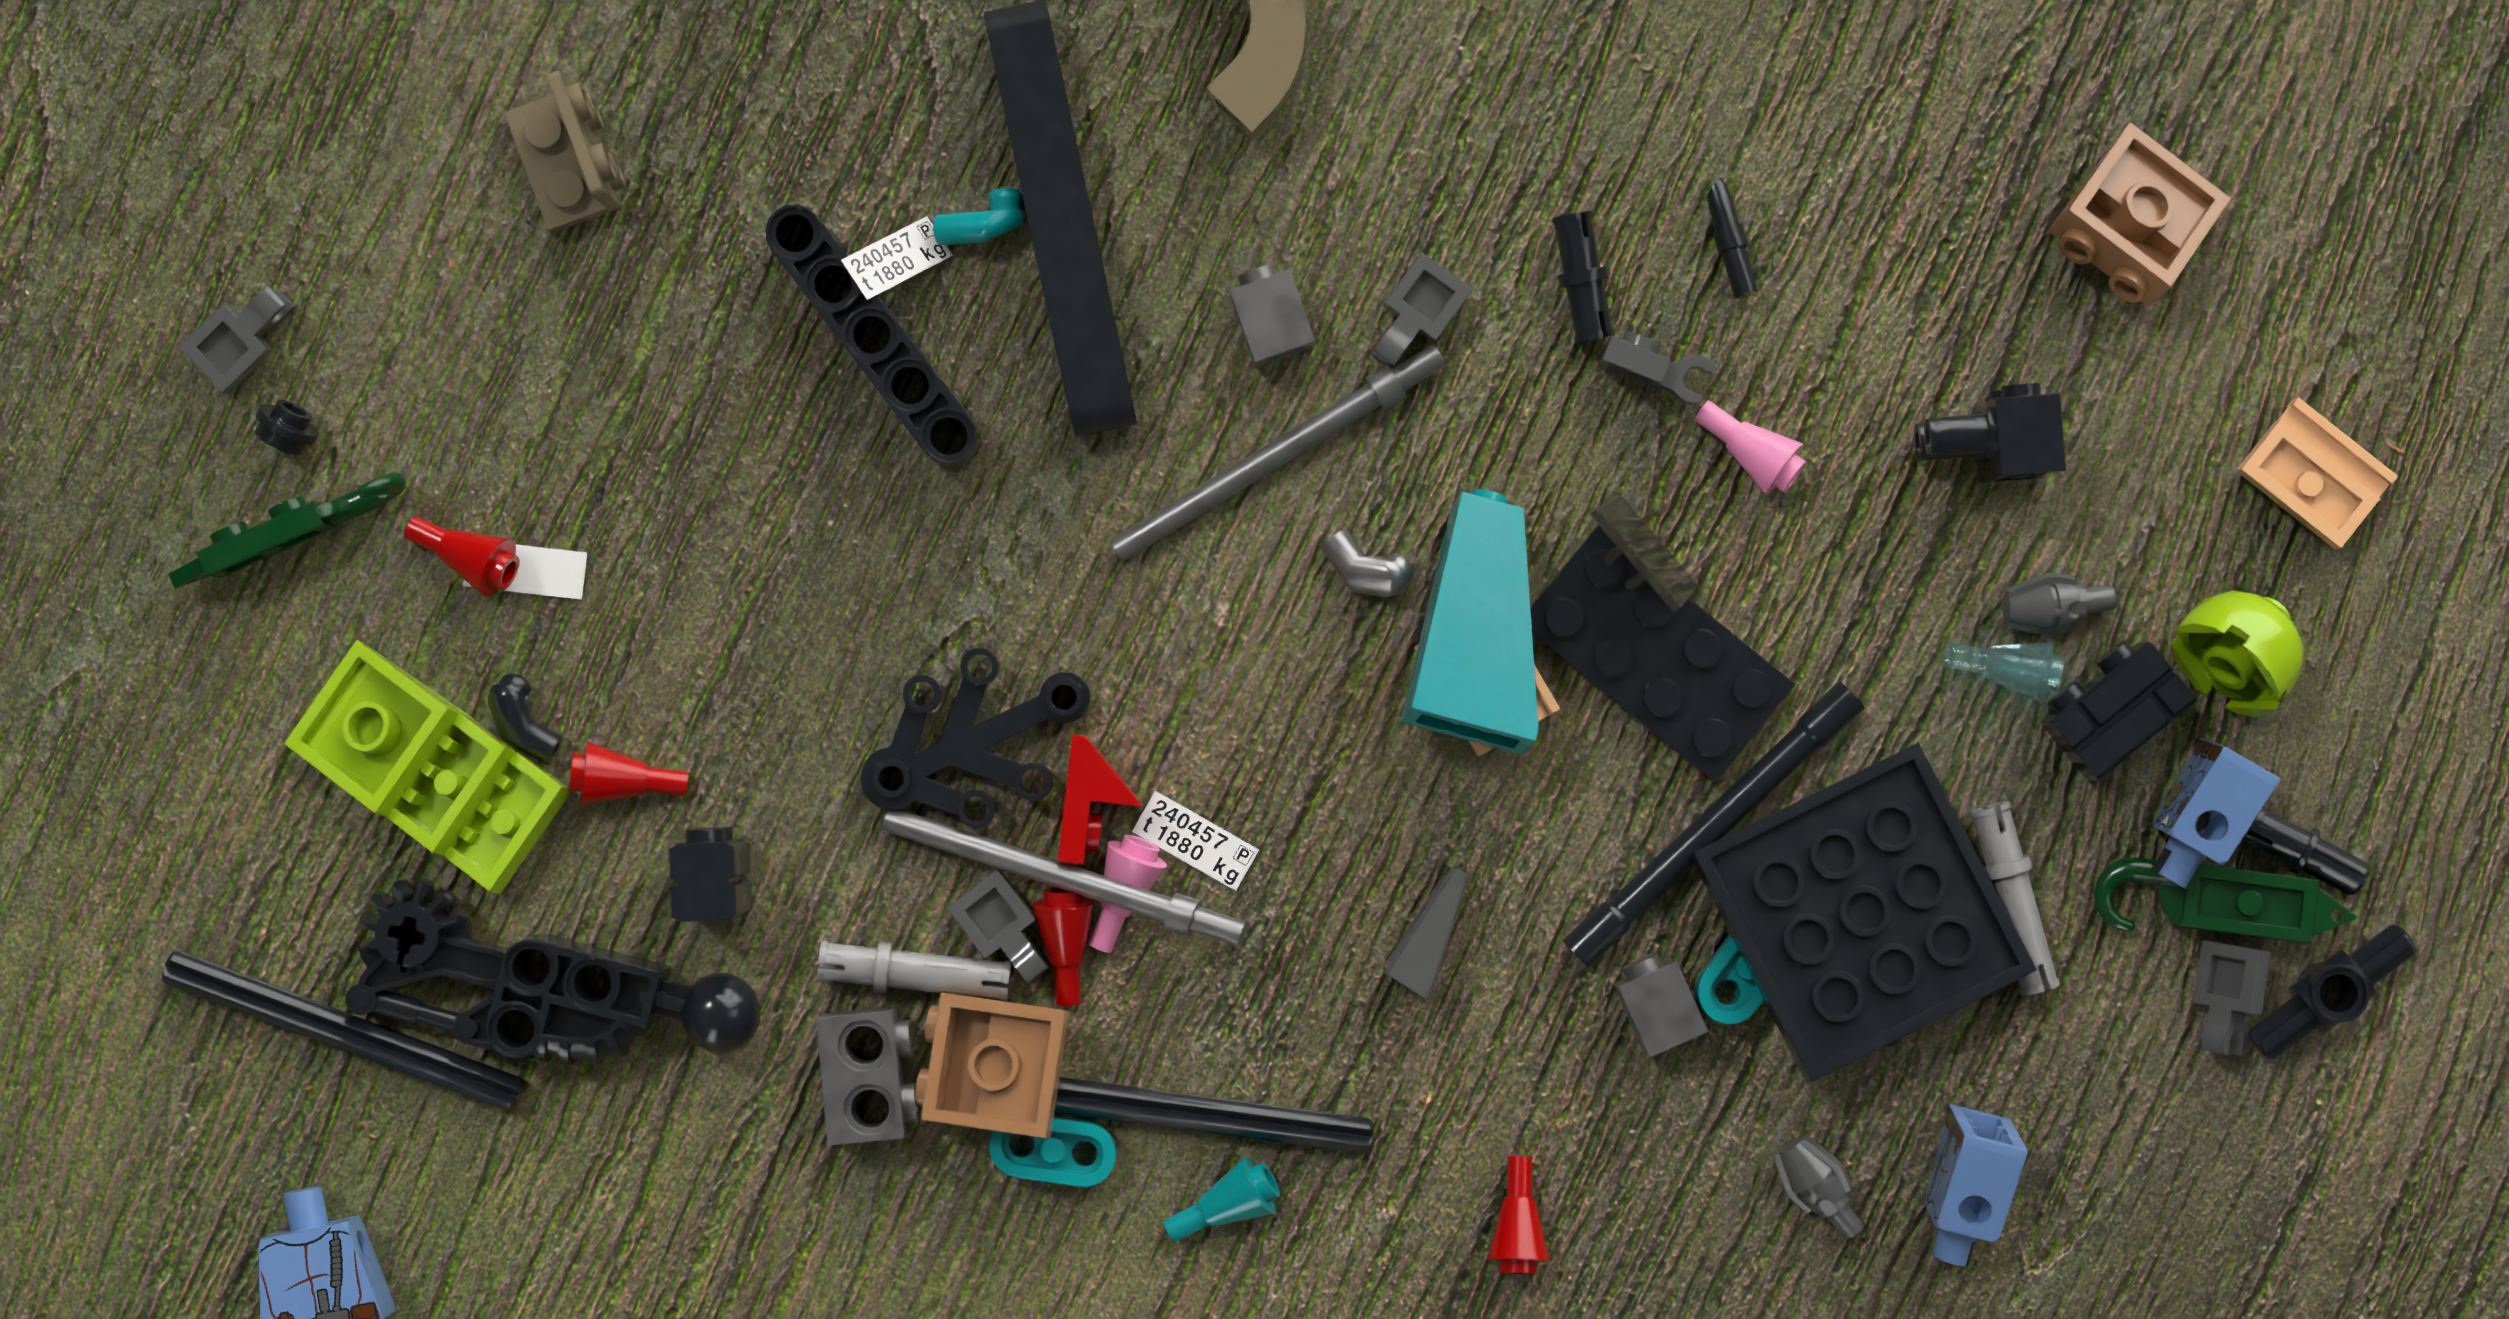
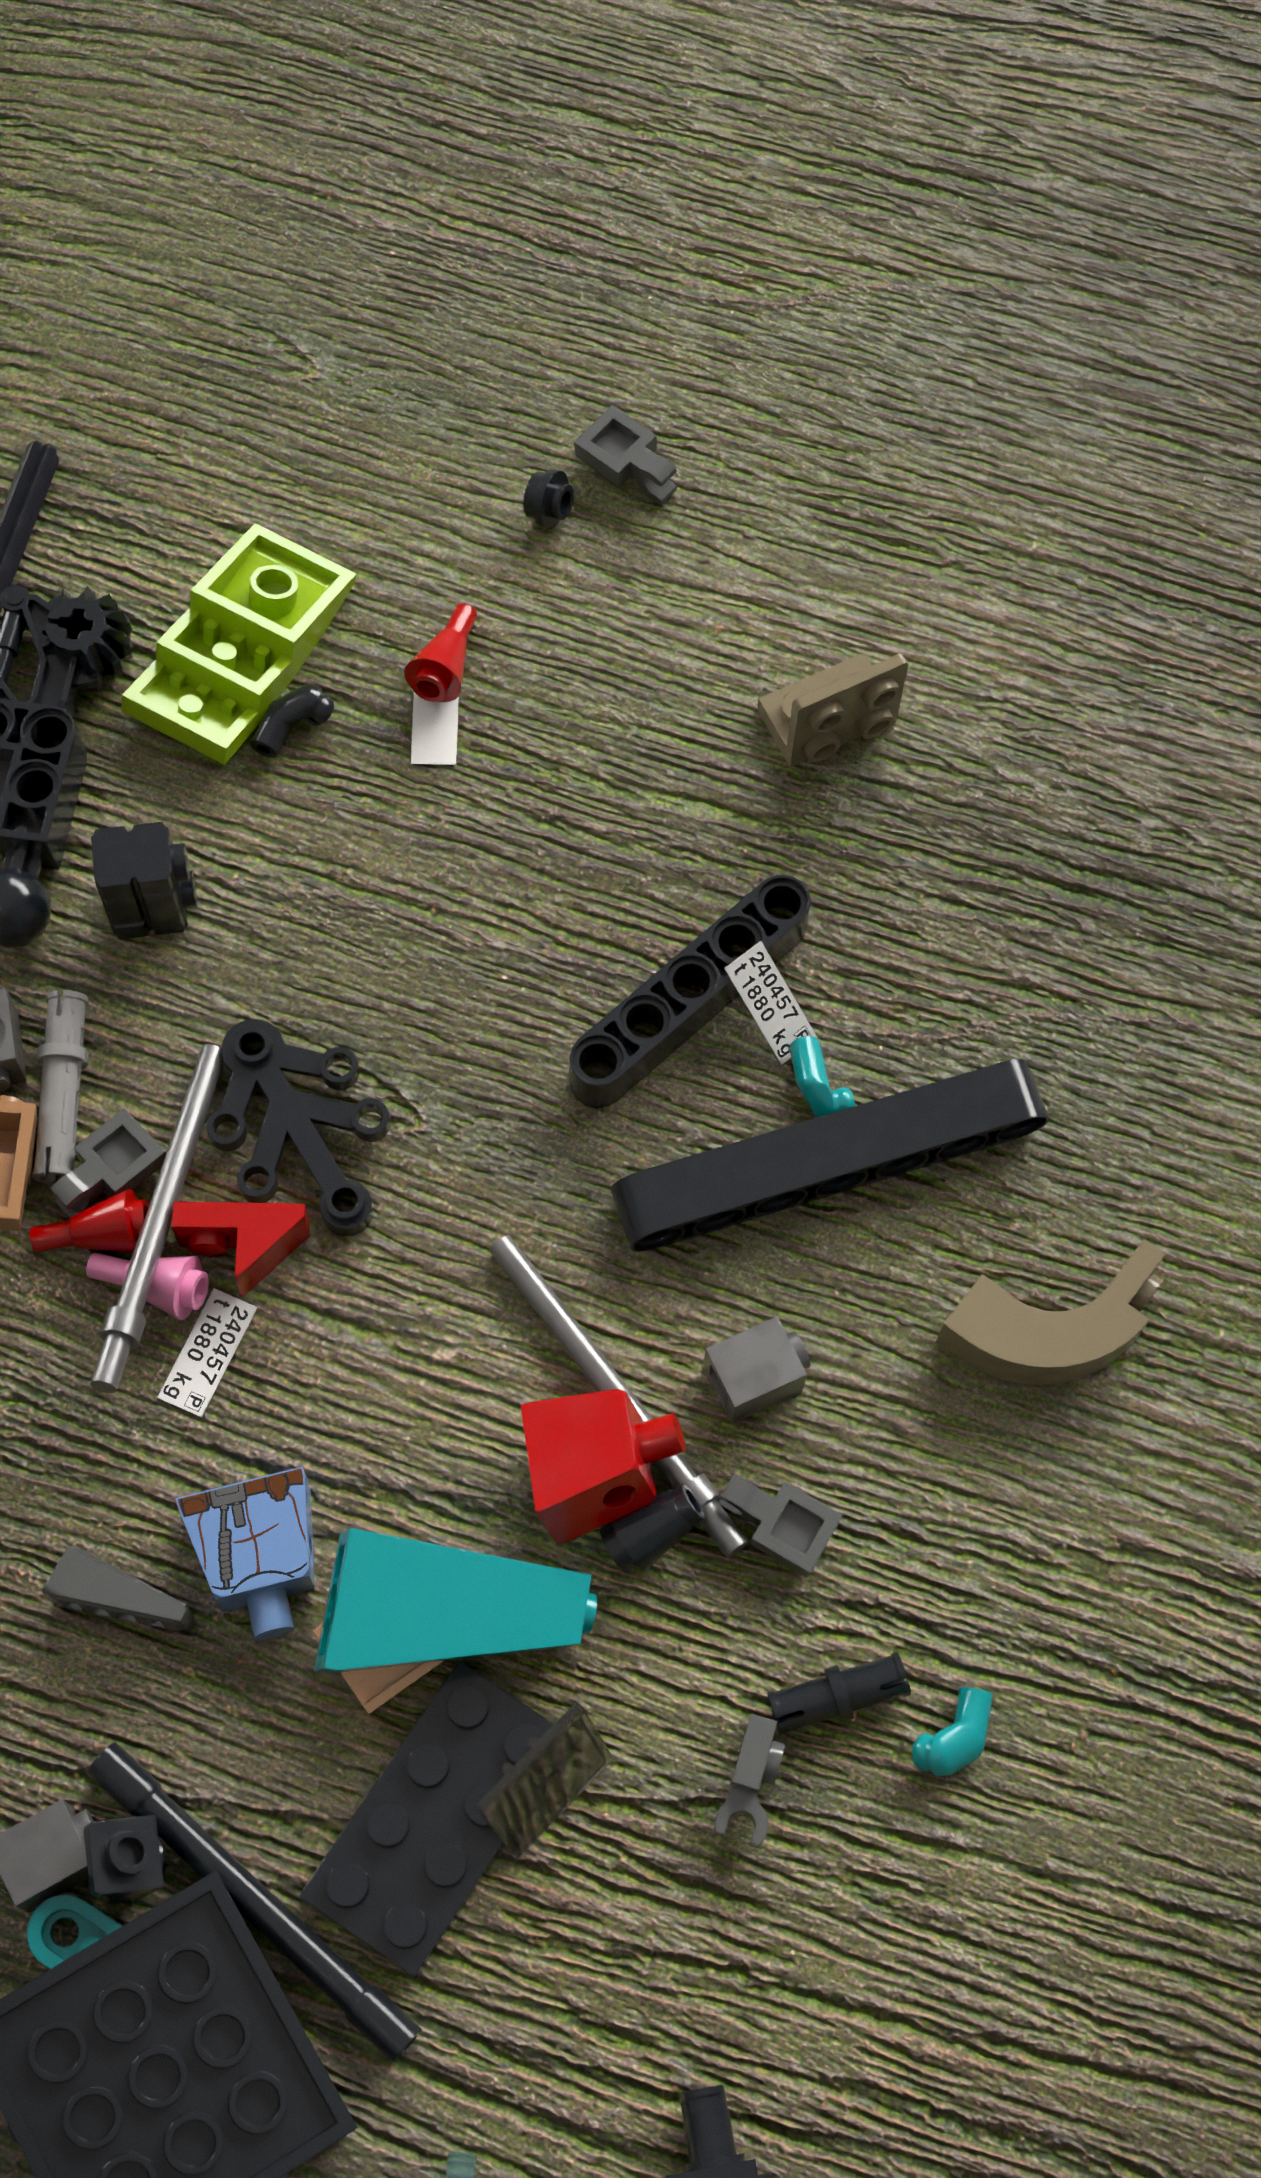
camera: 85 degrees right, 20 degrees down
(289, 525) = (454, 506): dark green plate -> none
(611, 775) = (240, 793): red cone -> none
(1351, 479) = (593, 1459): none -> red torso
(1367, 573) = (498, 1497): flat silver arm -> none
(1397, 803) = (255, 1545): none -> medium blue torso
(1416, 434) = (652, 1530): none -> black cone
(1636, 170) = (960, 1742): none -> teal arm
(1674, 933) = (124, 1858): none -> black bracket
(1731, 241) = (899, 1856): black piece -> none
(1763, 454) = (666, 1916): bright pink cone -> none

